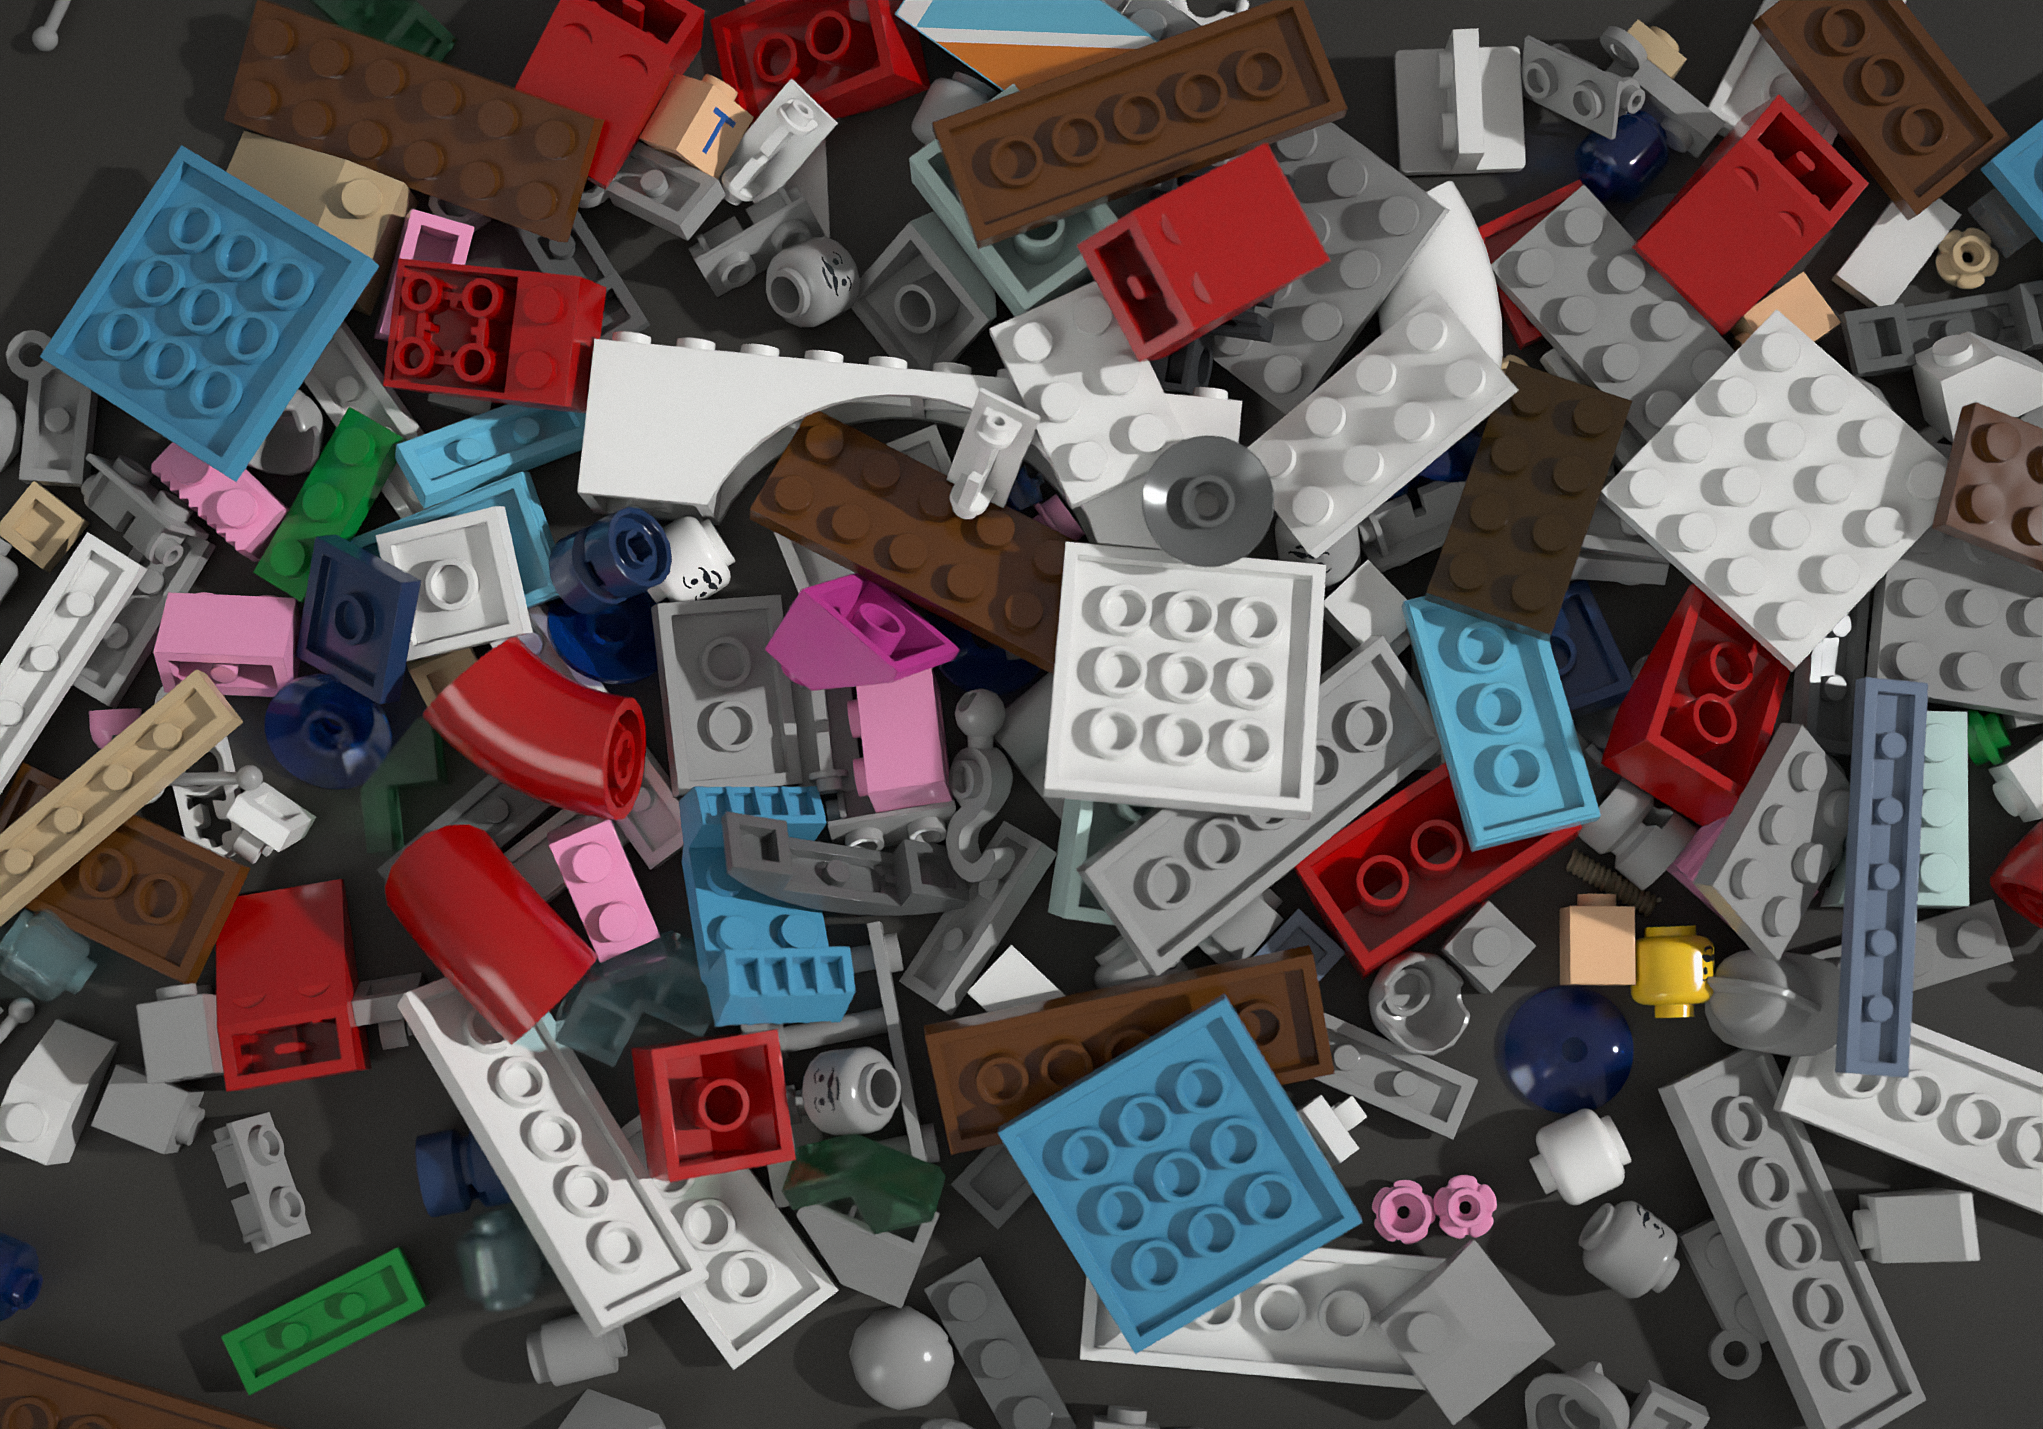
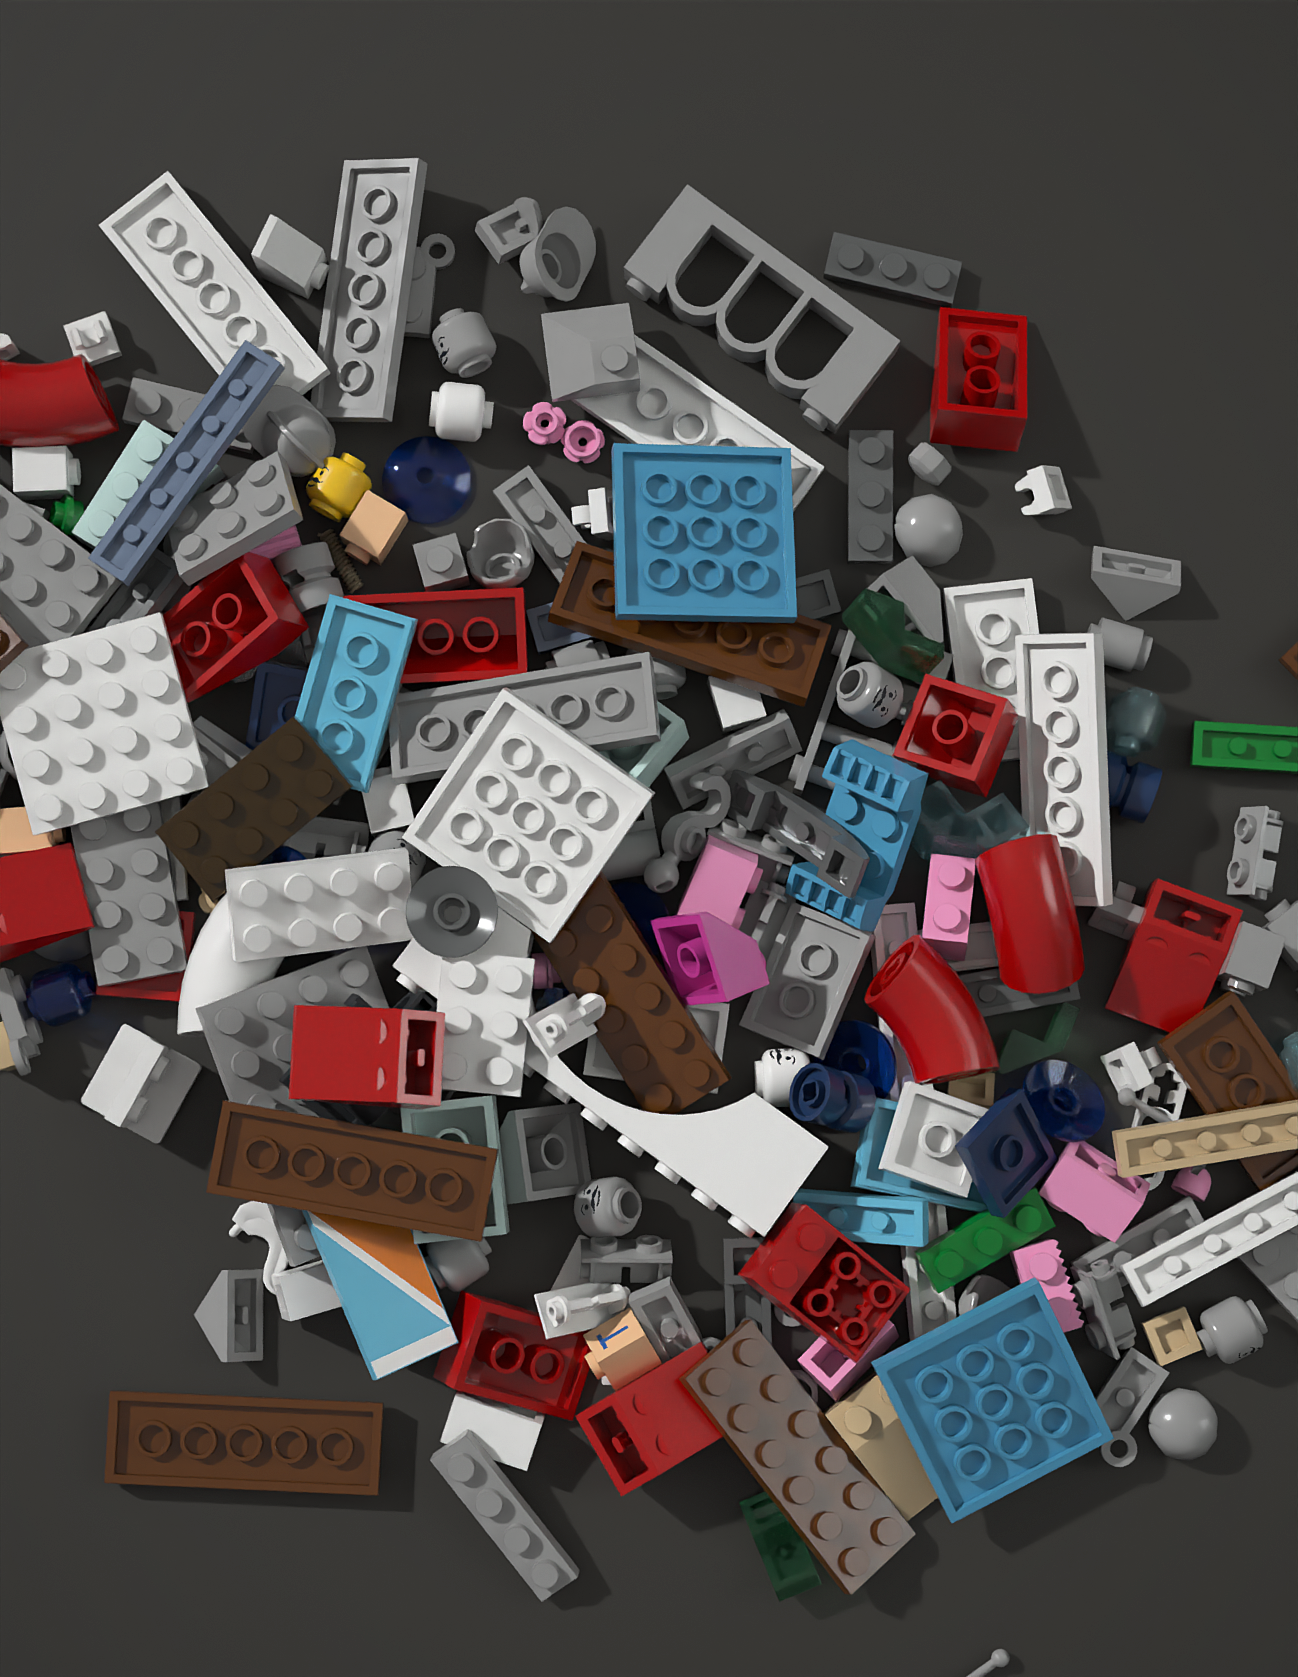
camera: 150 degrees left, 0 degrees up
(1577, 87) = (67, 1059): light grey hinge -> none

